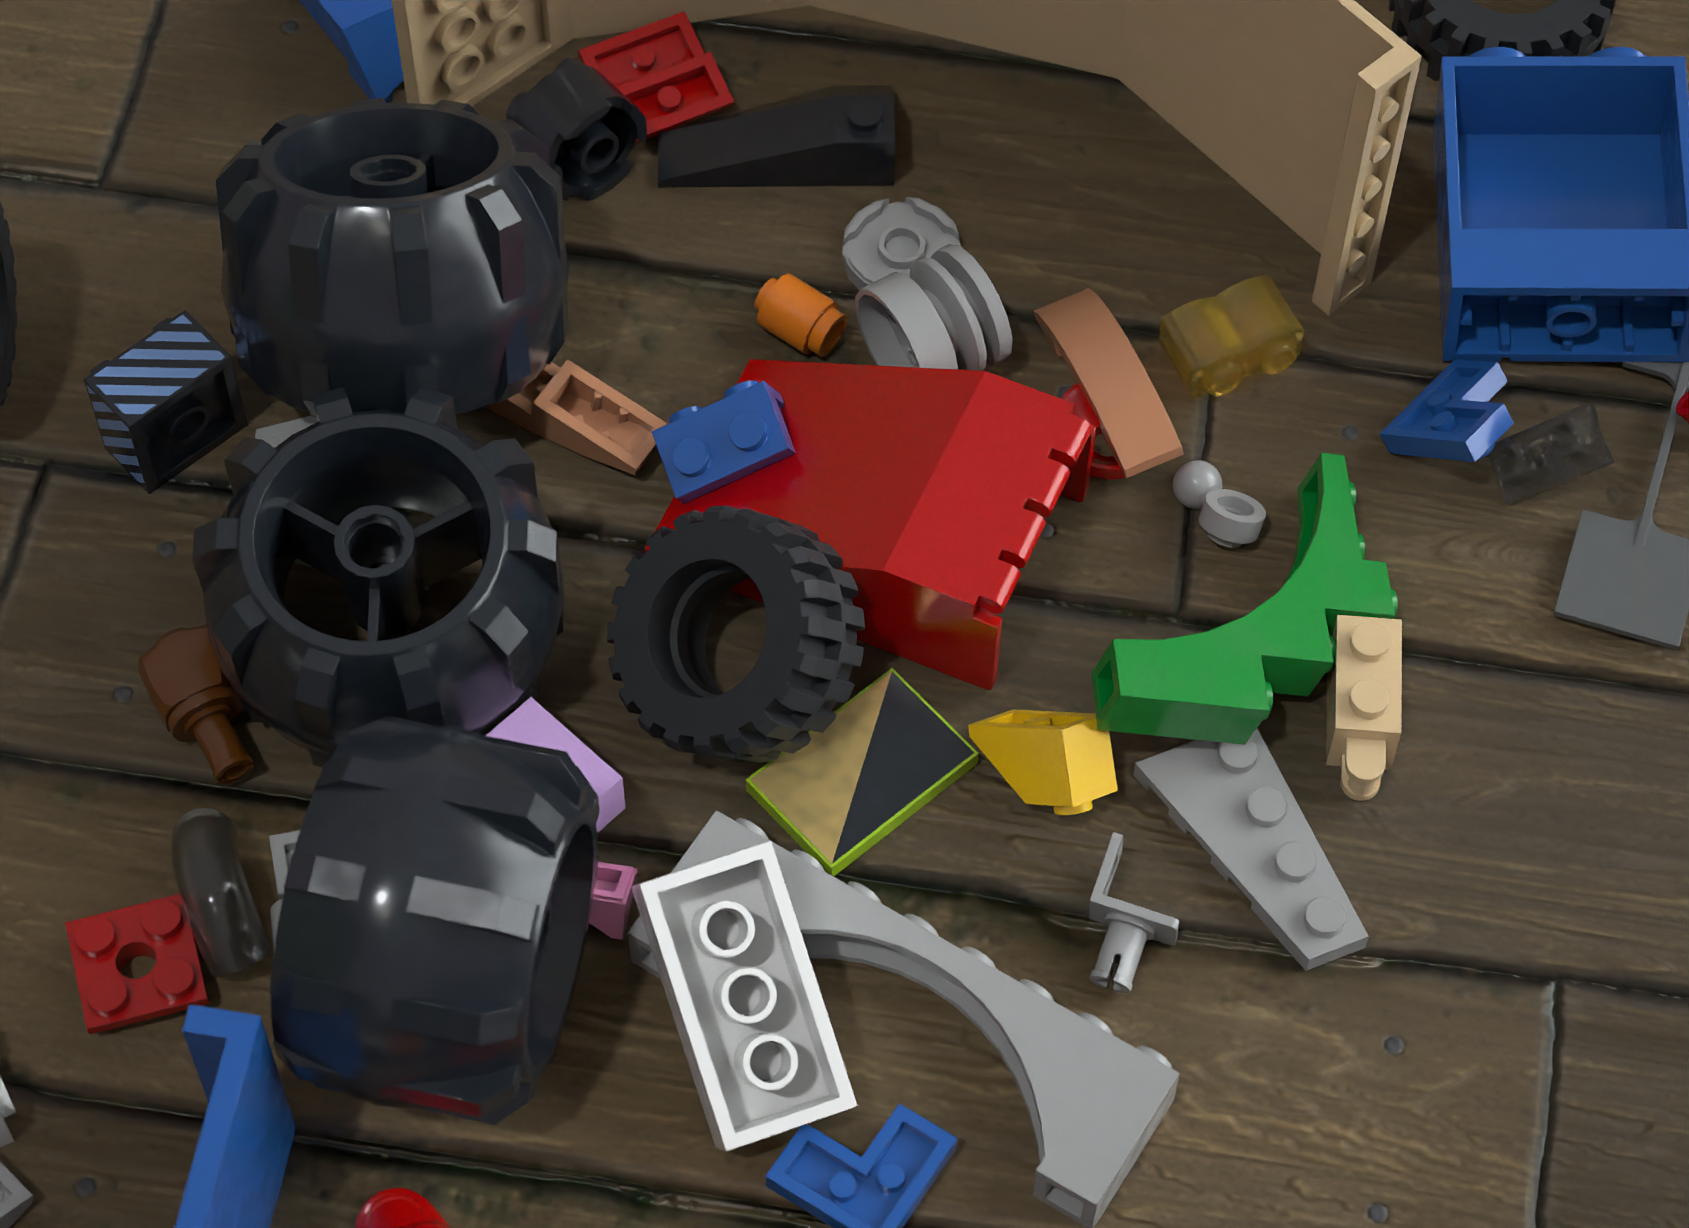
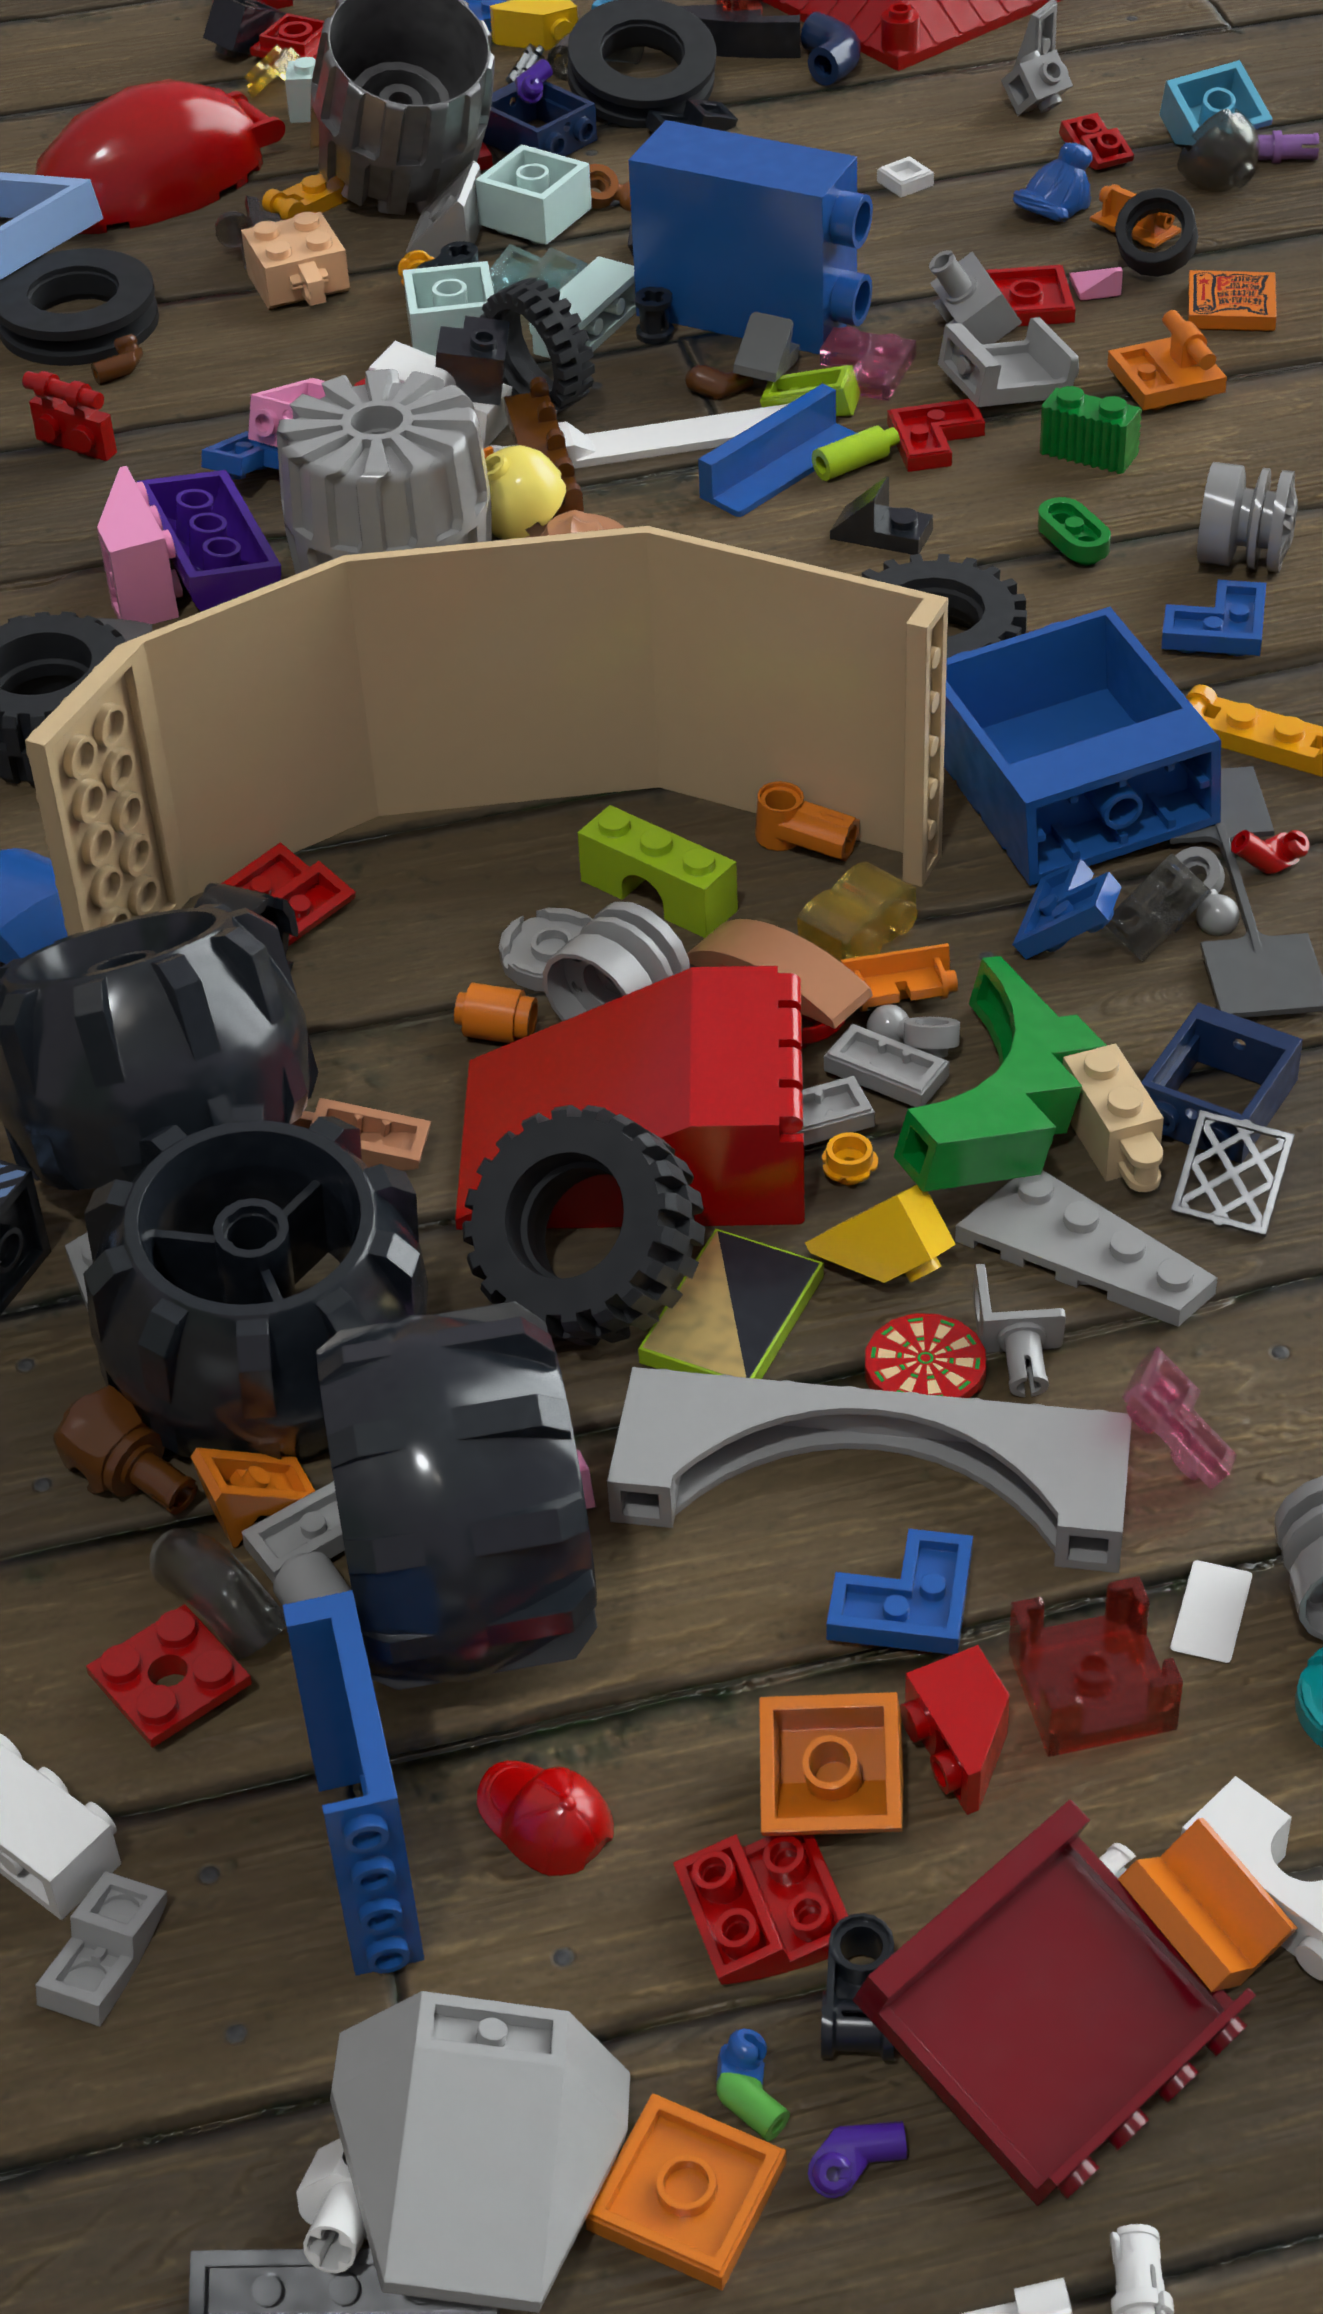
camera: 20 degrees left, 15 degrees down
(277, 787) = (247, 1486): none -> orange slope
(723, 440) = (486, 1107): blue bracket -> none
(744, 996) = (738, 1481): white brick -> none
(796, 142) = (436, 898): black wedge -> none
(1022, 912) = (926, 1357): none -> red tile
(1069, 623) = (849, 1158): none -> light orange plate
(1072, 570) = (835, 1110): none -> light grey plate
(1074, 224) = (692, 881): none -> lime arch
(1166, 537) = (886, 1066): none -> light grey plate
(1215, 1081) = (1163, 1402): none -> clear pink plate
(1236, 193) = (789, 821): none -> orange piece
(1256, 438) = (905, 974): none -> orange hinge
(1486, 850) = (1245, 1130): none -> window
(1539, 660) = (1211, 1039): none -> dark blue window
(1626, 477) = (1217, 913): none -> light grey plate

